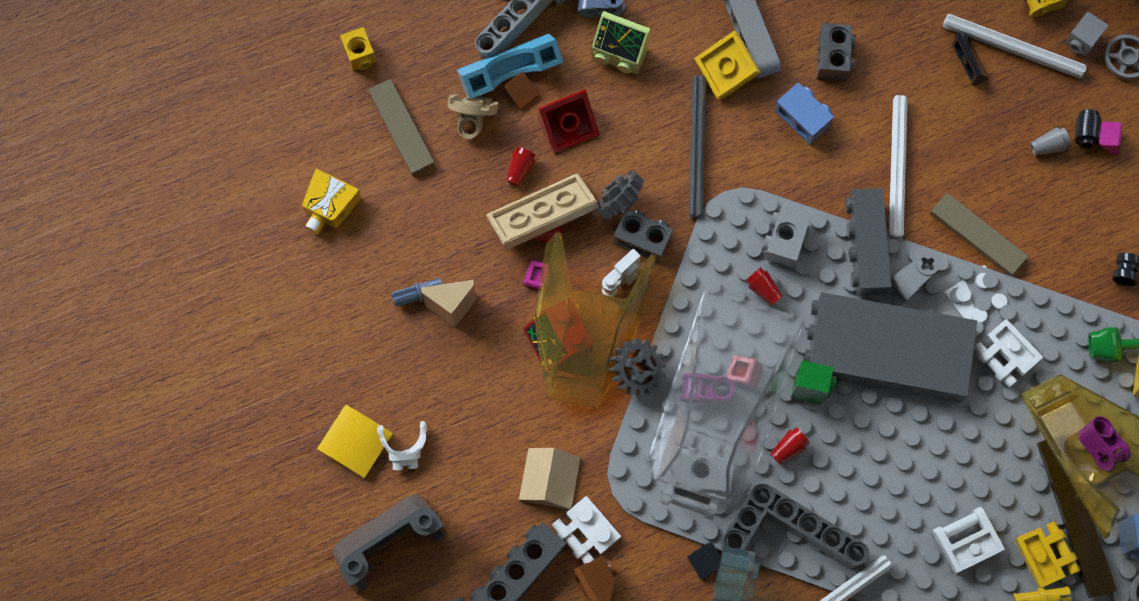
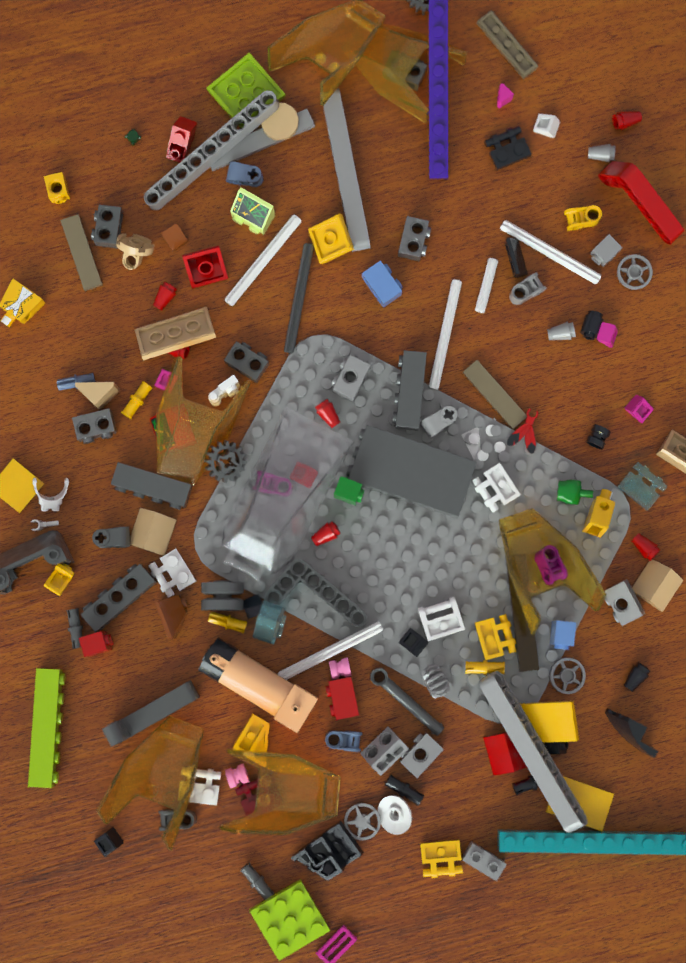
camera: 10 degrees right, 10 degrees up
(399, 489) = (41, 525): none -> white hand
(432, 559) = (59, 579): none -> yellow bracket
(435, 88) = (112, 226): none -> dark grey brick
(448, 340) = (94, 420): none -> flat silver brick
(499, 492) = (115, 537): none -> dark grey piece
(502, 305) = (136, 400): none -> yellow pin
(527, 57) = (149, 221): medium azure arch -> none
(540, 415) = (152, 485): none -> dark grey brick
(620, 194) = (233, 329): dark grey gear -> none
(641, 105) = (262, 260): none -> white axle
(663, 550) = (222, 596): none -> dark grey wheel
(673, 587) = (227, 622): none -> yellow axle
(936, 578) = (413, 642): none -> black slope
(939, 101) = (486, 285): none -> white axle
(996, 93) = (529, 287): none -> light grey piece
(1031, 274) = (527, 431): none -> red piece

